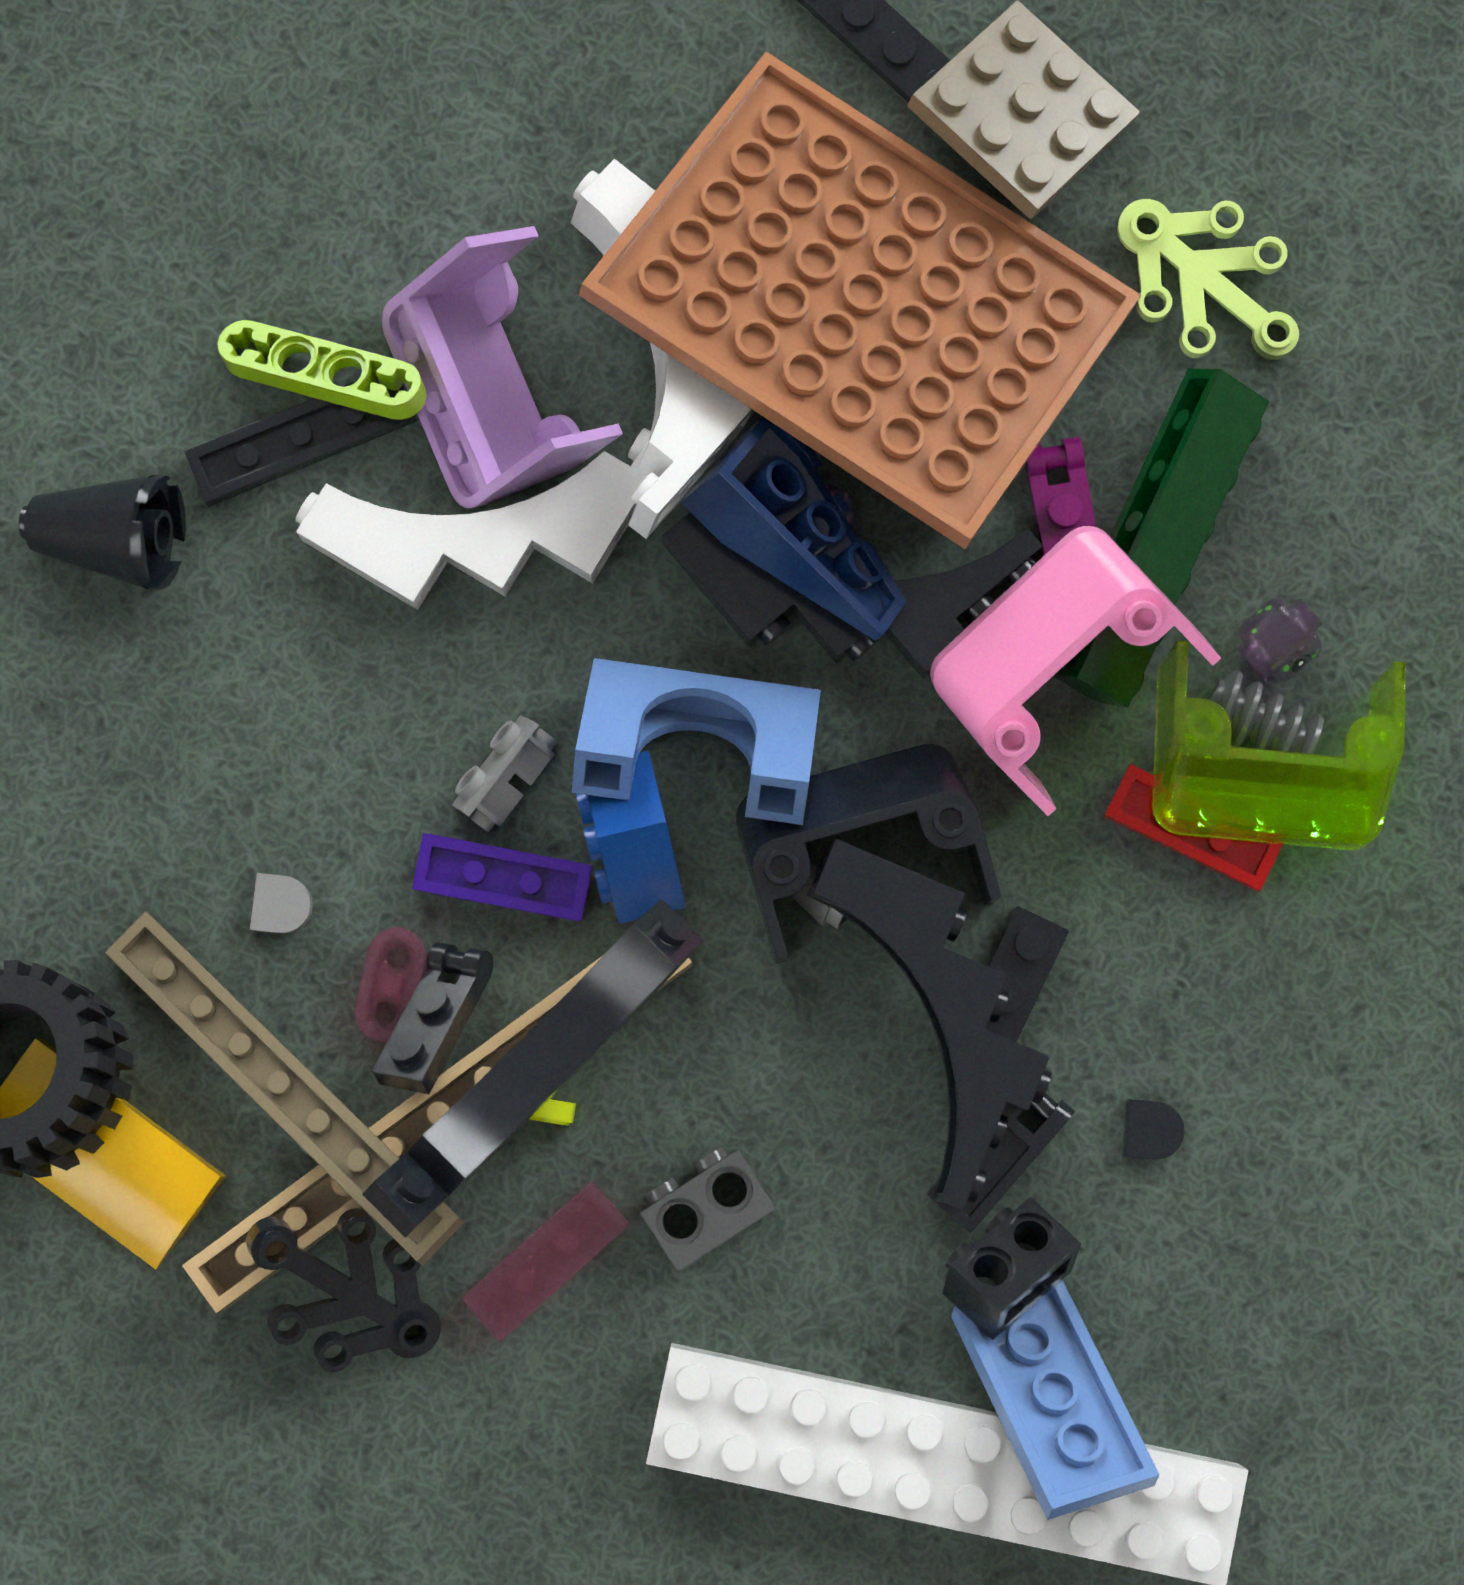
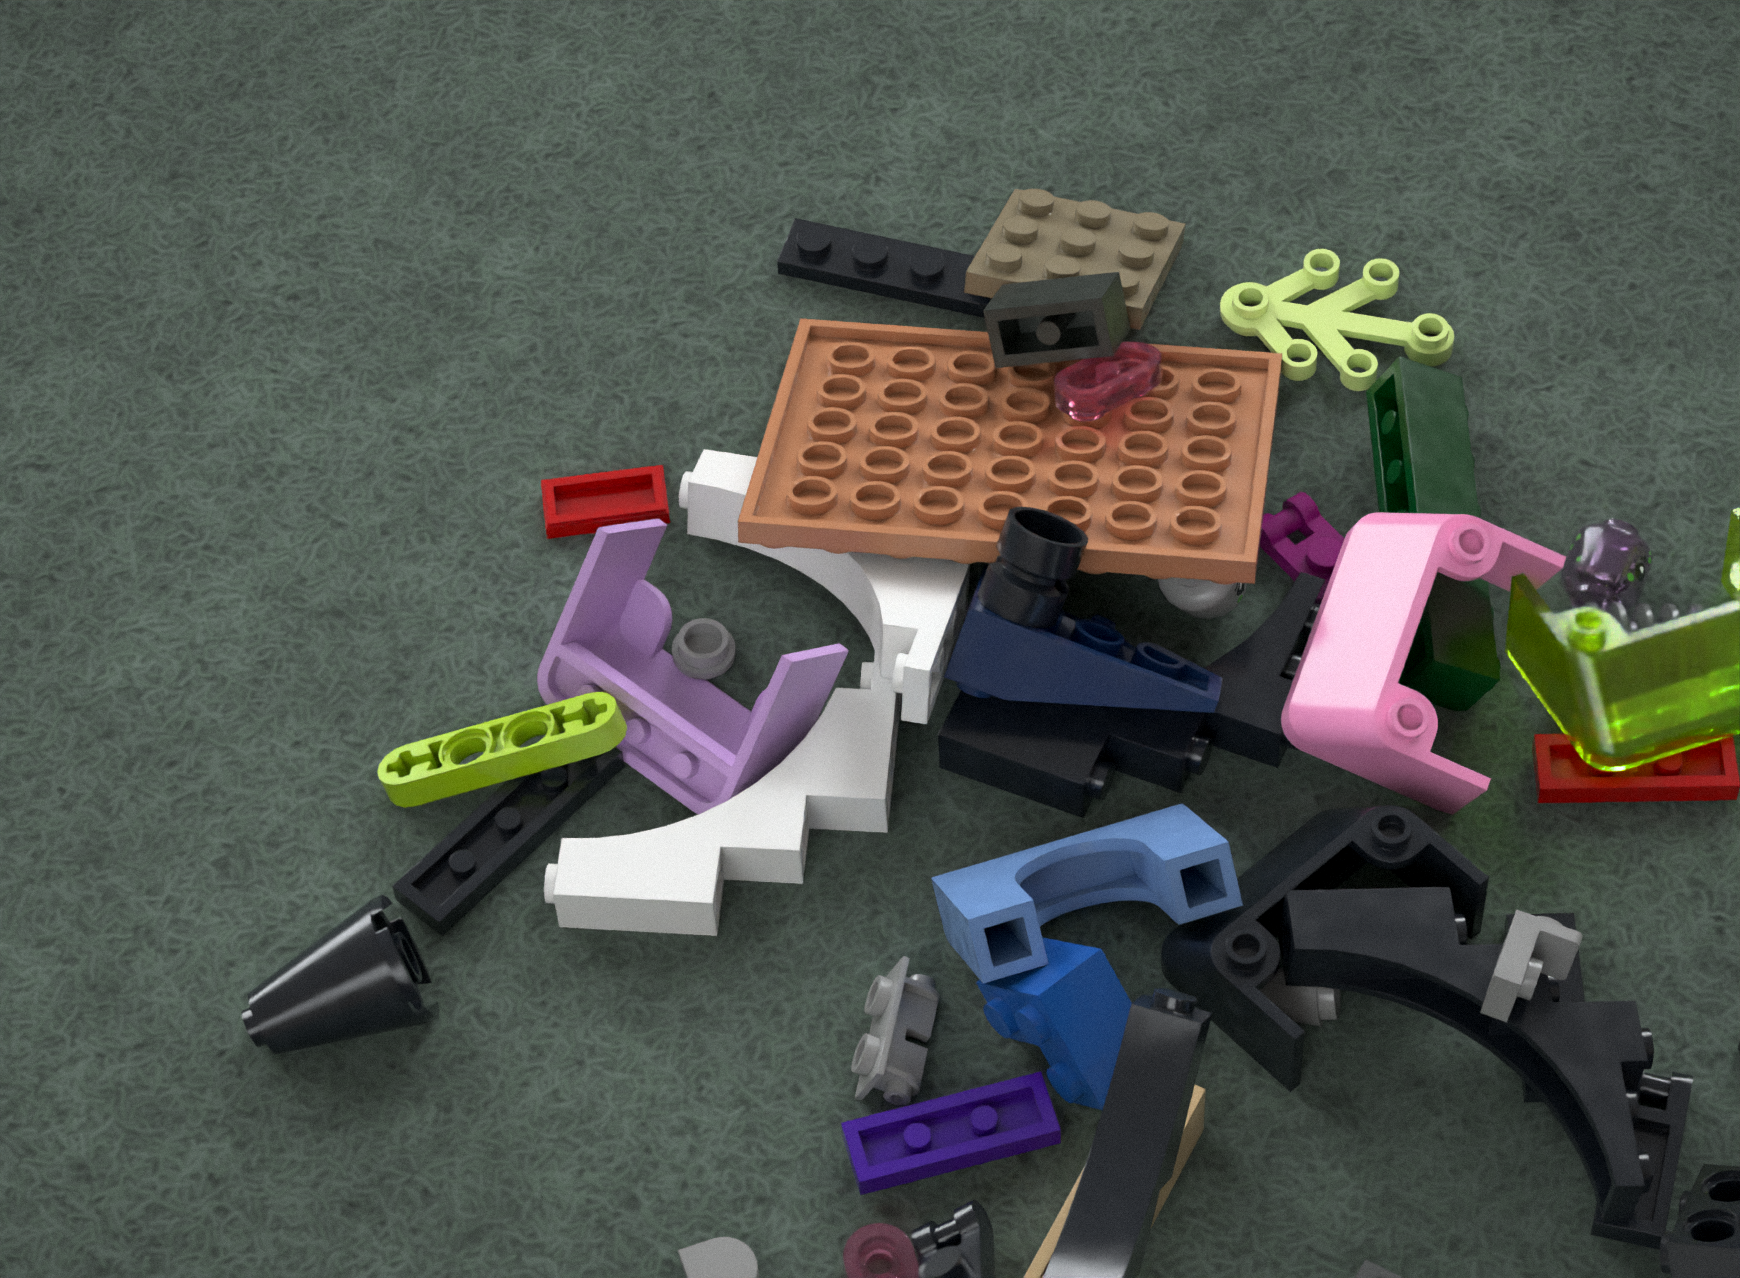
camera: 20 degrees left, 30 degrees down
(521, 153) = (603, 499): none -> red tile
(529, 344) = (703, 649): none -> light grey plate
(788, 458) = (1030, 573): none -> black wheel
(957, 190) = (1057, 320): none -> pearl dark grey brick
(963, 271) = (1105, 383): none -> clear pink plate
(963, 1001) = (1530, 948): none -> light grey bracket

